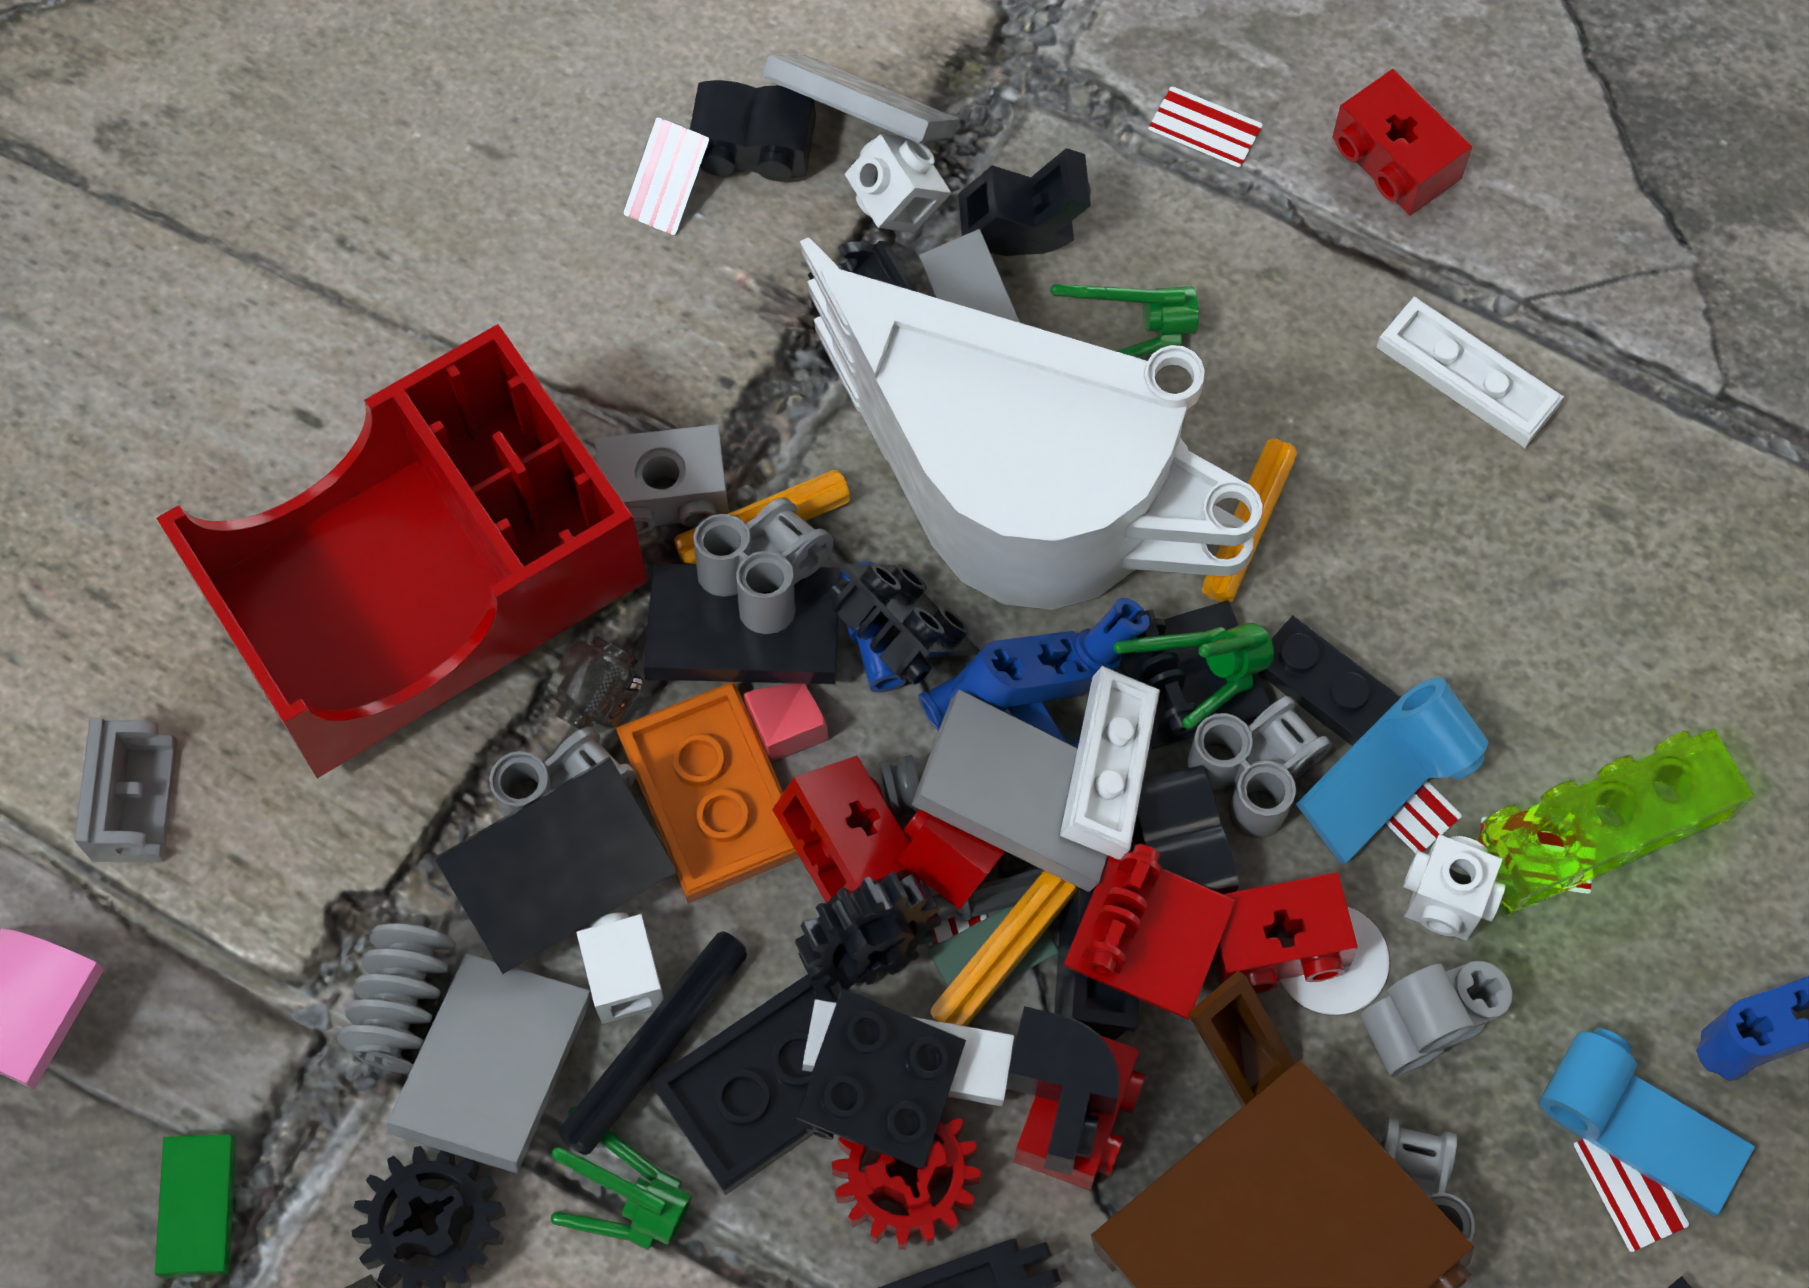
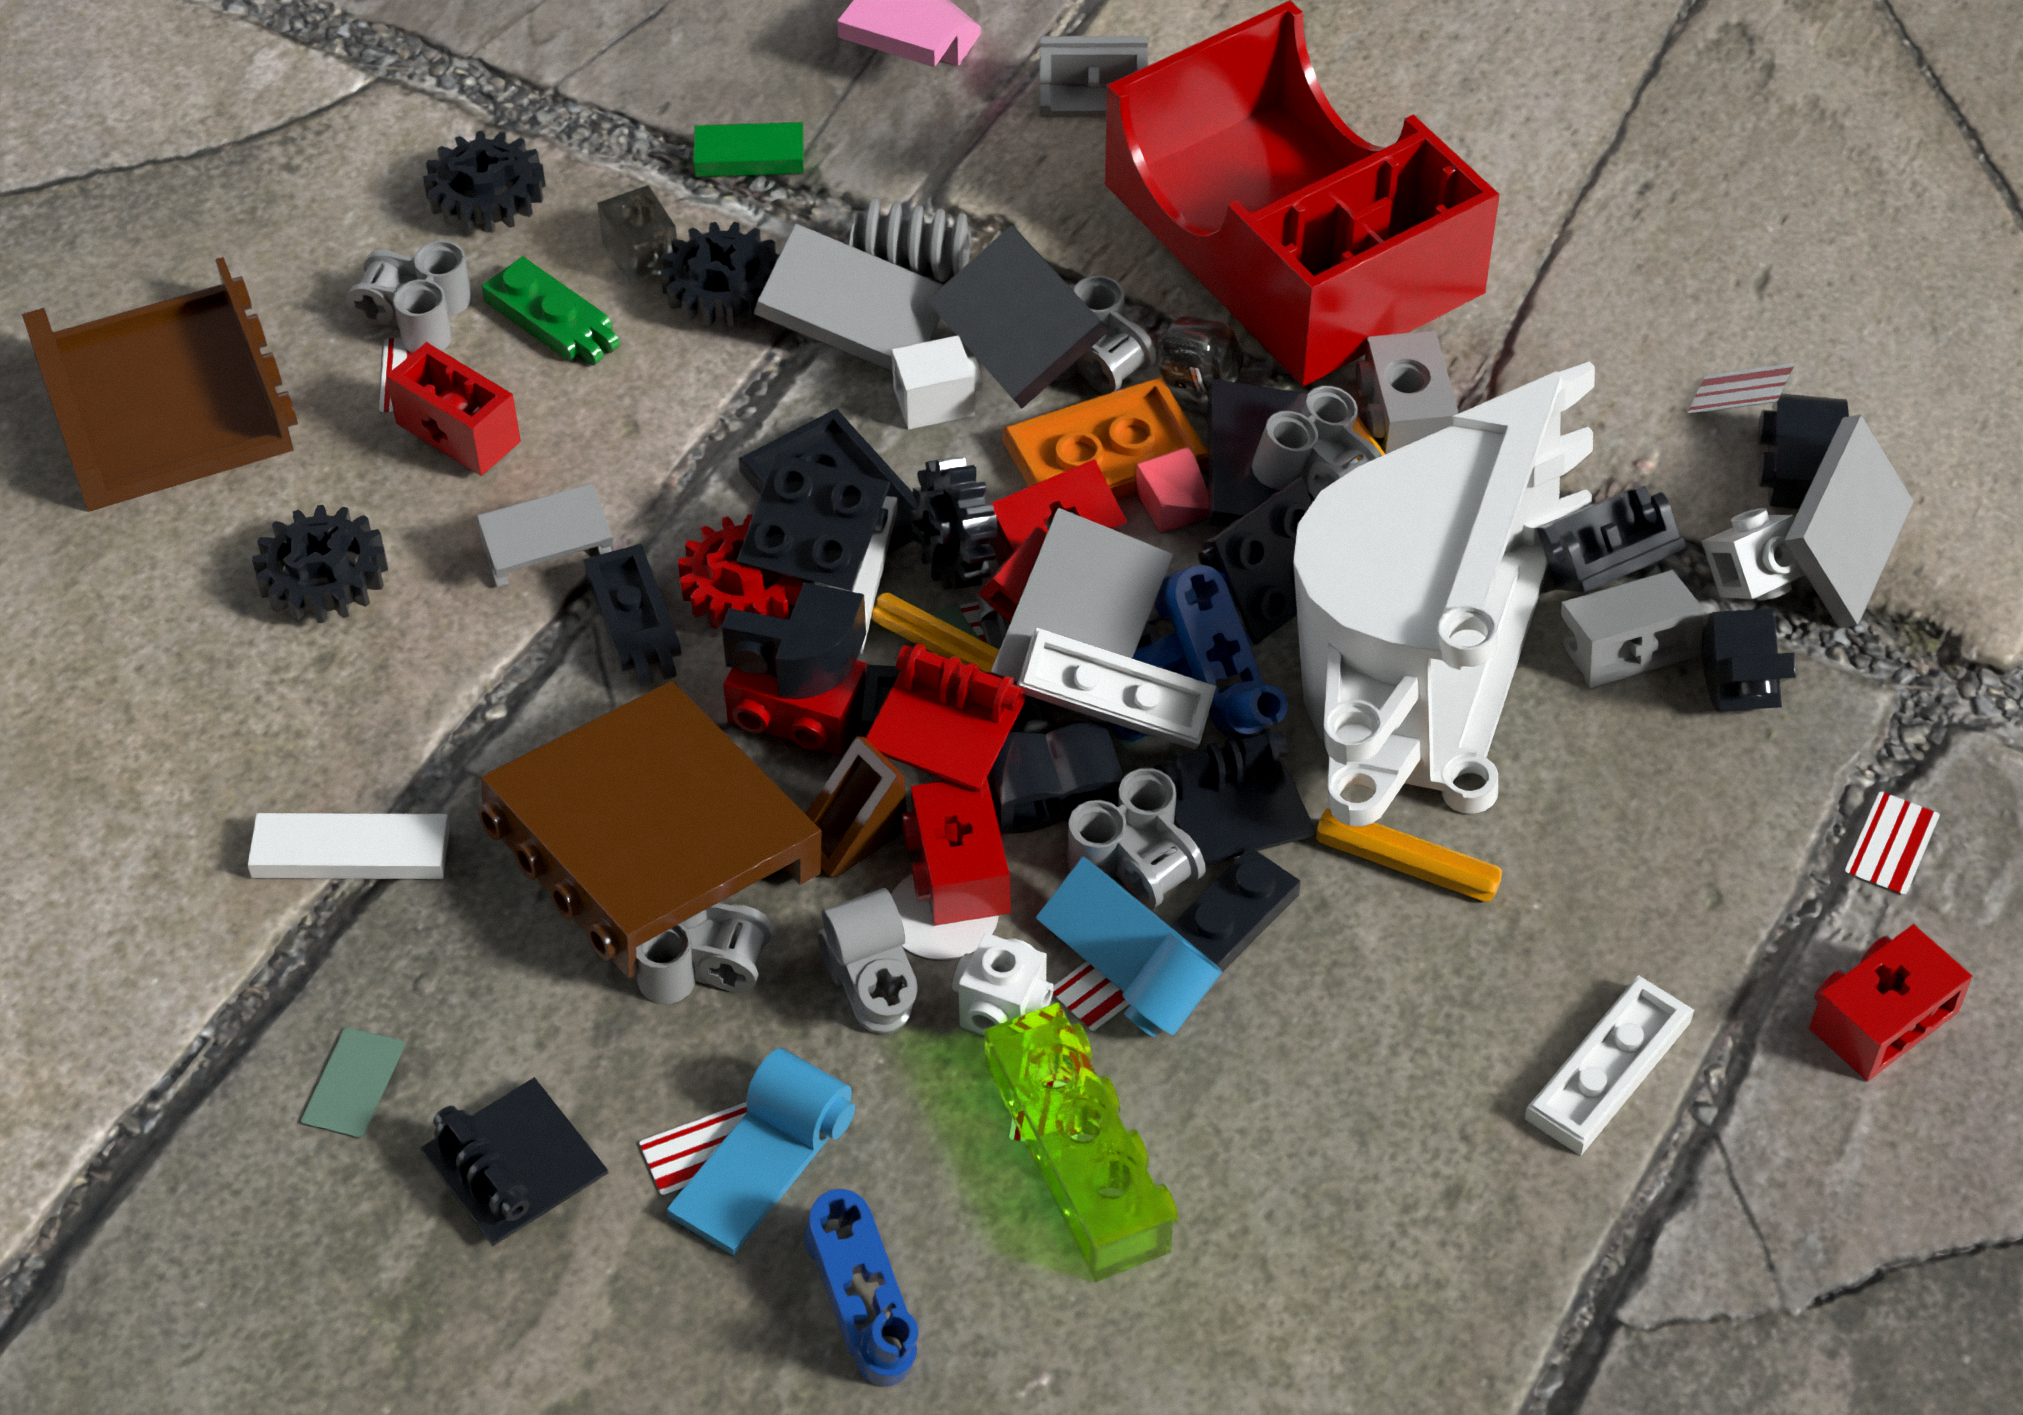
camera: 90 degrees right, 15 degrees down
(652, 1043) = (865, 405): black axle -> none
(653, 1207) = (727, 407): green plant -> none
(1165, 310) = (1643, 787): green plant -> none
(1229, 654) = (1249, 806): green plant -> none

